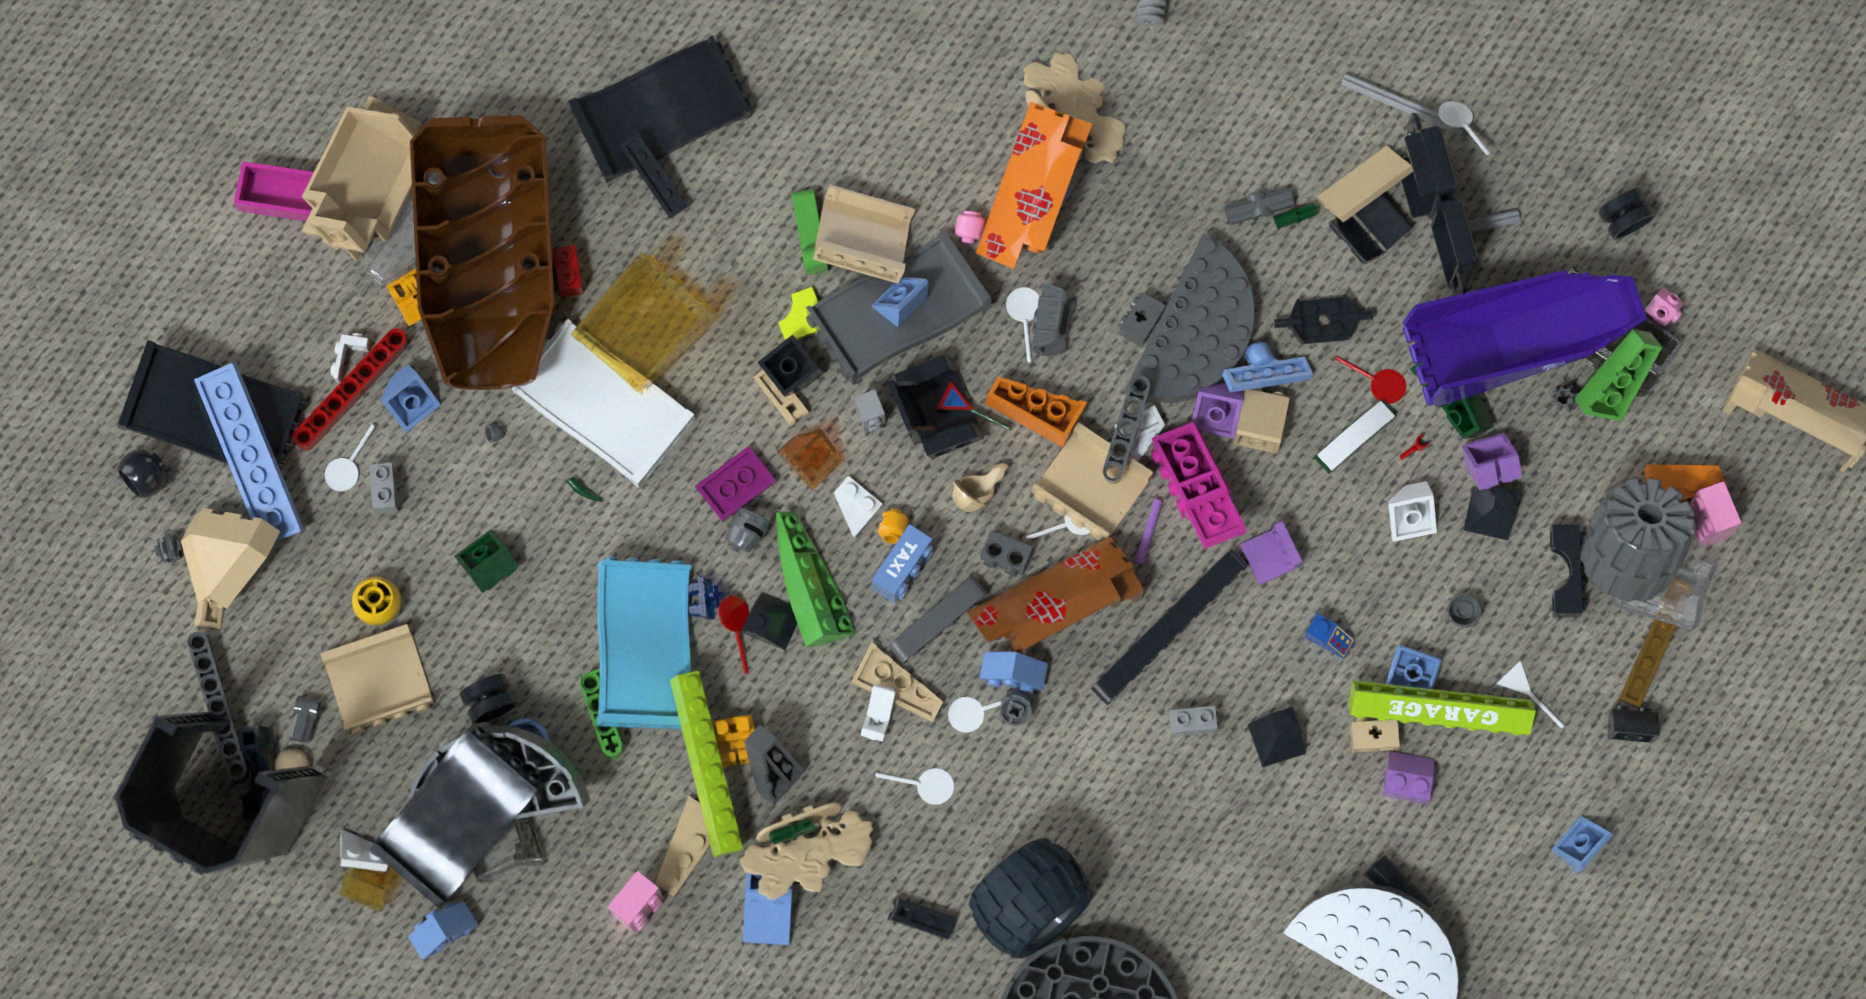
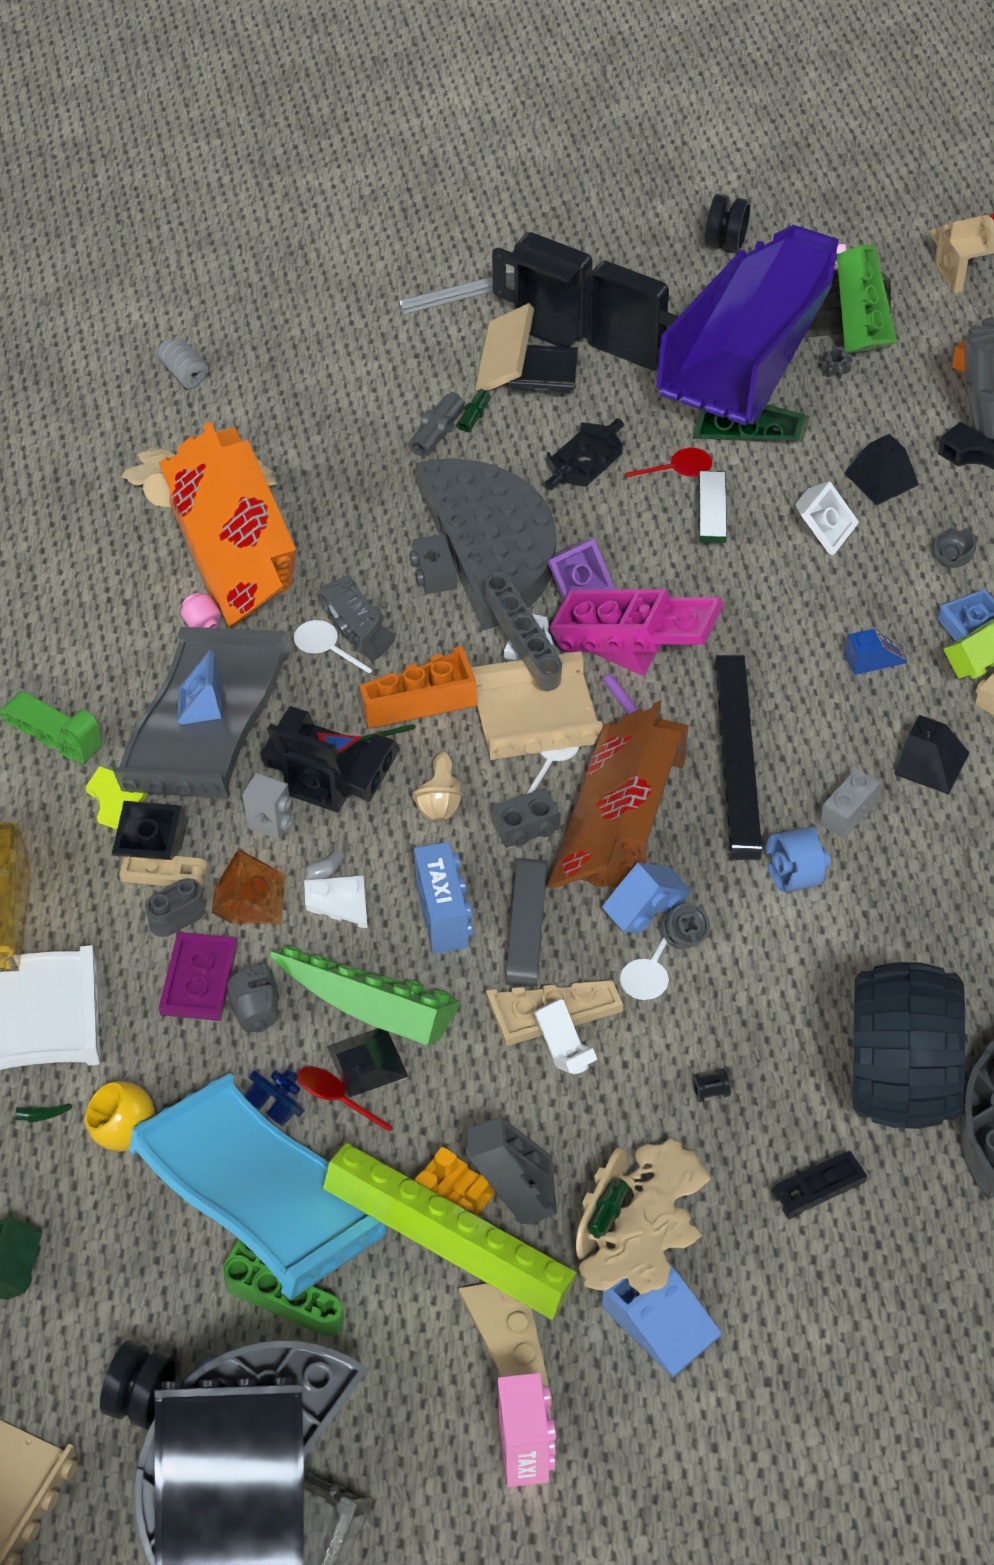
camera: 45 degrees left, 25 degrees down
(612, 536) = (116, 1112): none -> yellow wheel
(762, 428) = (175, 907): none -> dark grey brick
(863, 234) = (105, 677): tan panel -> none
(866, 478) = (325, 867): none -> light grey arm
(892, 525) = (395, 882): light orange head -> none
(920, 810) = (711, 1085): none -> black bush
(933, 786) = (680, 1063): white piece -> none
(1118, 728) = (797, 859): none -> medium blue brick
(1261, 420) = (630, 551): tan slope -> none
(1265, 370) = (579, 518): medium blue plate -> none
(1271, 554) = (754, 630): medium lavender bracket -> none
(1416, 447) = (766, 478): red hand -> none
(1491, 461) = (839, 434): medium lavender piece -> none

